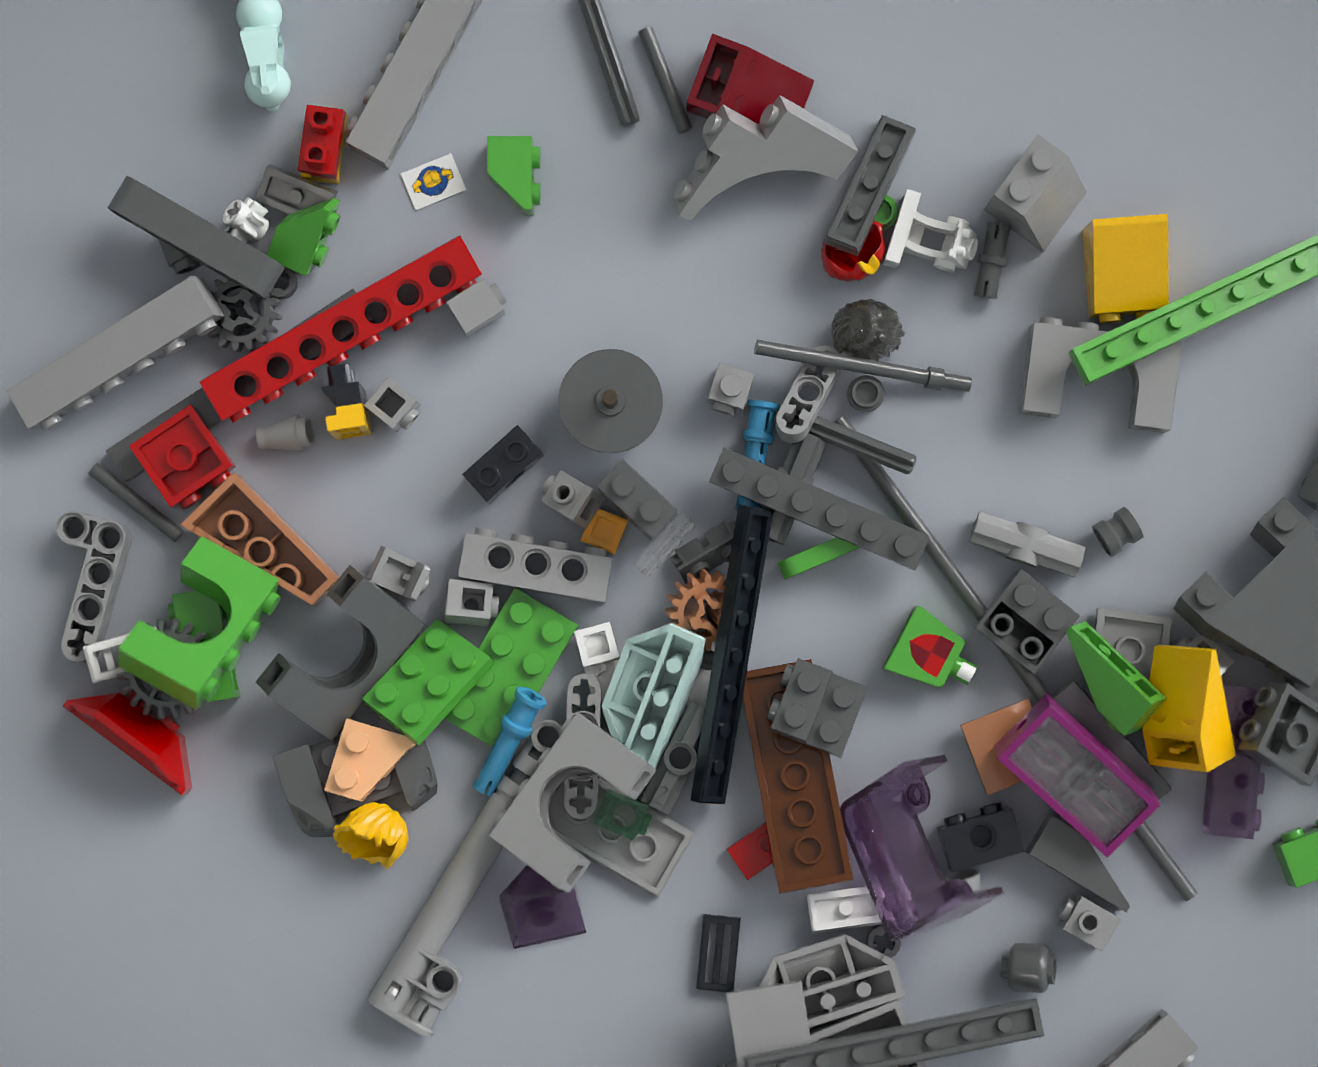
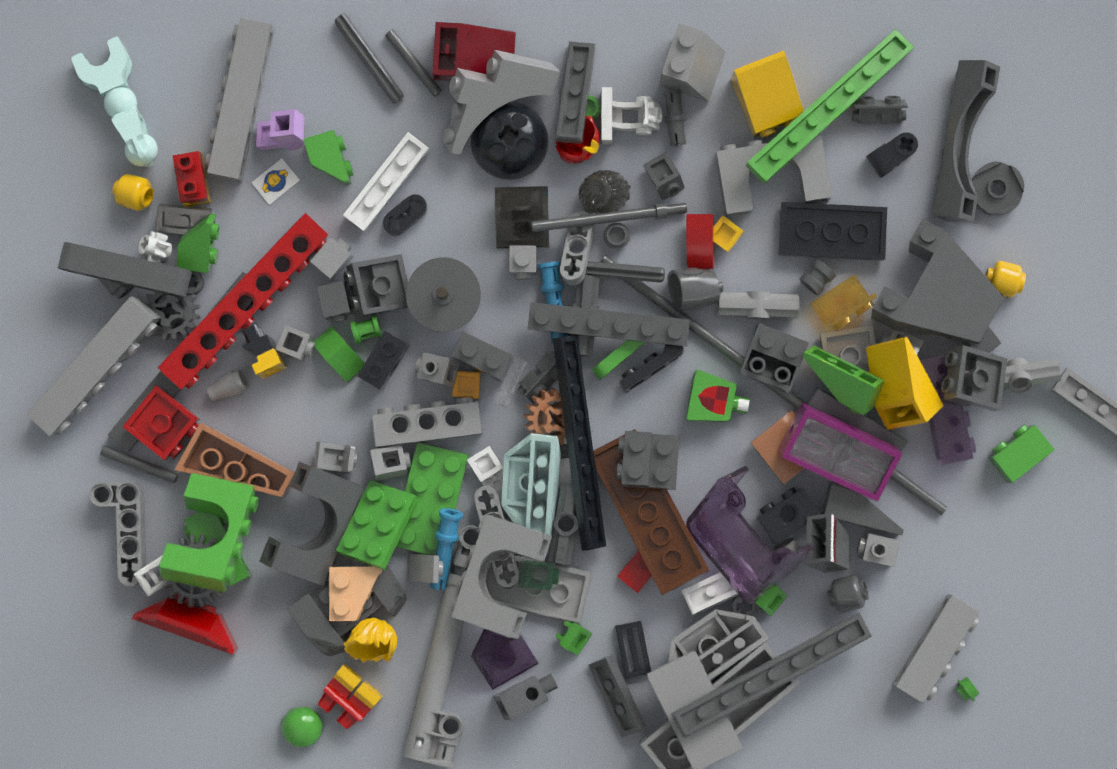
camera: 15 degrees left, 0 degrees up
(239, 138) = (133, 192): none -> yellow head
(244, 919) = (301, 726): none -> bright green hair
(308, 887) = (357, 705): none -> hips
(446, 437) = (338, 354): none -> bright green slope
(462, 117) = (282, 131): none -> lavender brick
(462, 366) = (334, 301): none -> dark grey brick
(473, 759) = (424, 568): none -> light grey slope
(493, 415) = (366, 329): none -> bright green bush
(525, 362) = (377, 285): none -> dark grey plate
(537, 971) = (513, 700): none -> dark grey torso
(580, 227) = (386, 182): none -> white plate
(587, 271) = (400, 210): none -> black beam
(645, 914) = (575, 638): none -> bright green tile
(677, 1009) = (617, 696): none -> dark grey plate
(740, 319) = (515, 210): none -> clear smoke slope
(758, 242) = (512, 154): none -> black piece
(861, 581) = (653, 364): none -> black hinge
(923, 945) = (771, 600): none -> bright green tile
(947, 495) = (693, 288): none -> dark grey helmet
(954, 333) = (664, 176): none -> dark grey bracket
(975, 435) = (700, 240): none -> red slope
(1012, 435) = (726, 233): none -> yellow plate
(1026, 893) = (829, 544): none -> dark grey torso
(1139, 575) = (842, 301): none -> clear yellow bracket
(1157, 476) = (832, 231): none -> black plate
(1265, 397) = (890, 156): none -> black piece
(1283, 334) = (890, 110): none -> dark grey hinge

